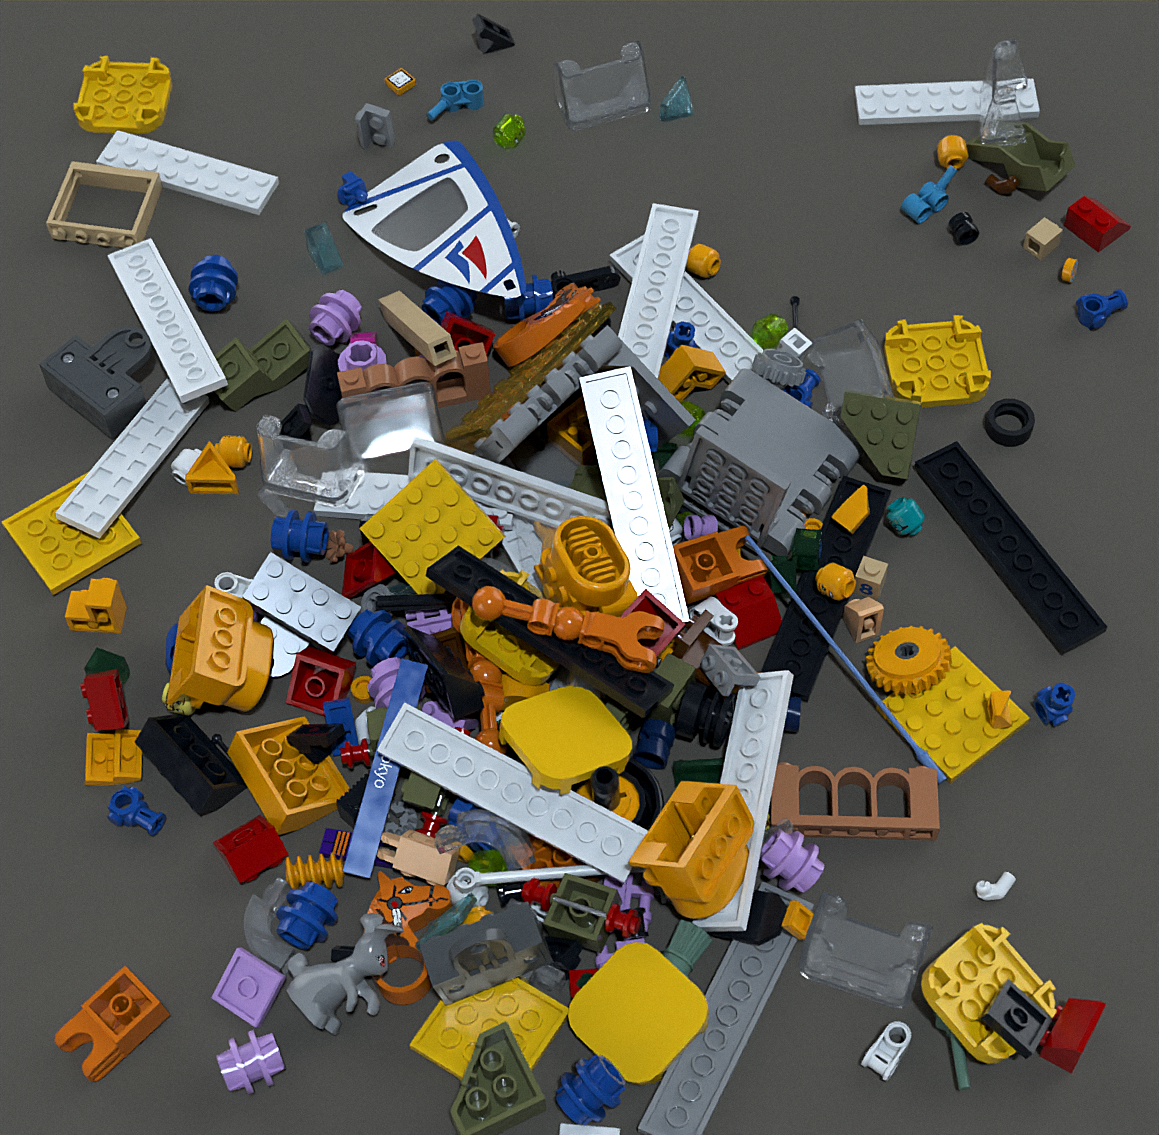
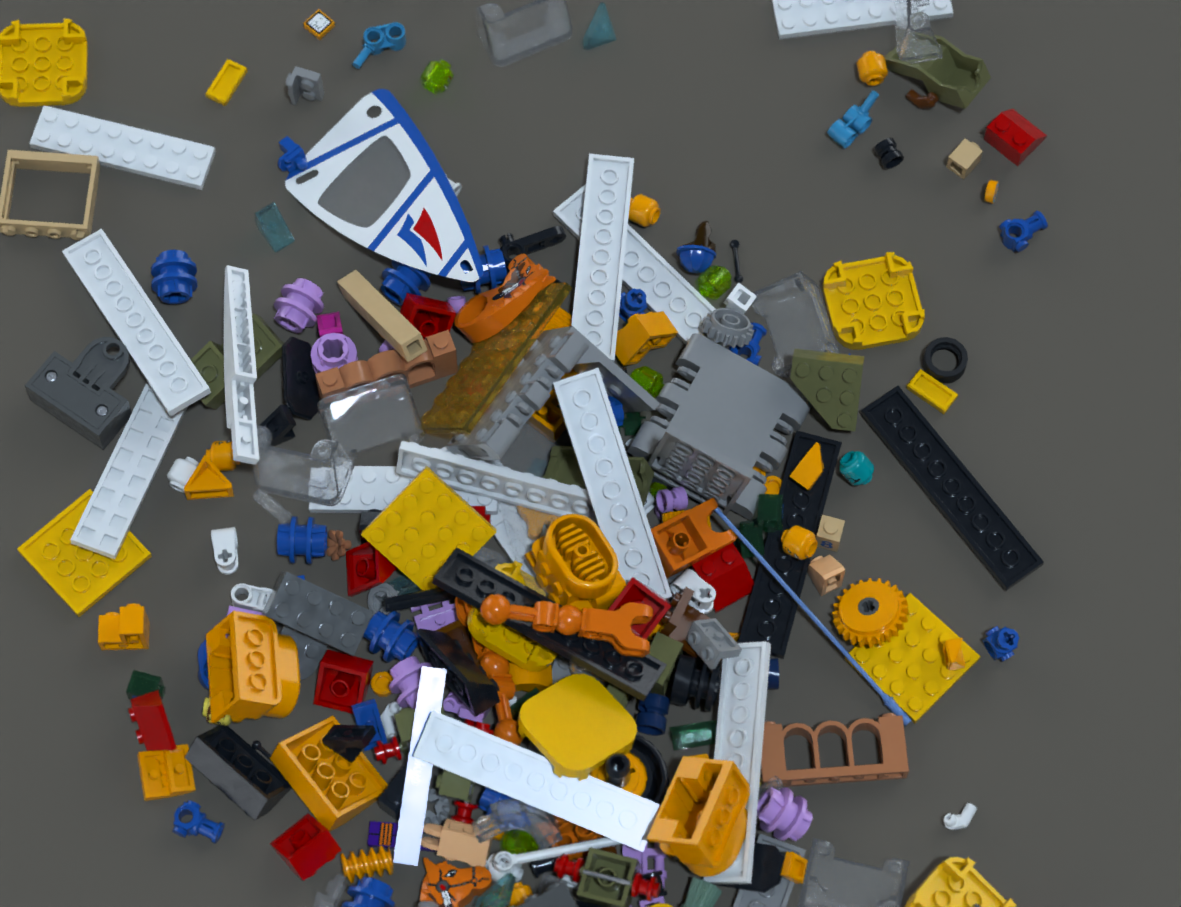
camera: 10 degrees left, 10 degrees up
(219, 541) = (225, 547): none -> white piece
(260, 360) = (240, 366): none -> white slope
(300, 124) = (226, 82): none -> yellow tile
(498, 330) = (457, 302): none -> lavender hinge
(754, 302) = (700, 253): none -> blue piece
(993, 452) = (932, 391): none -> yellow tile

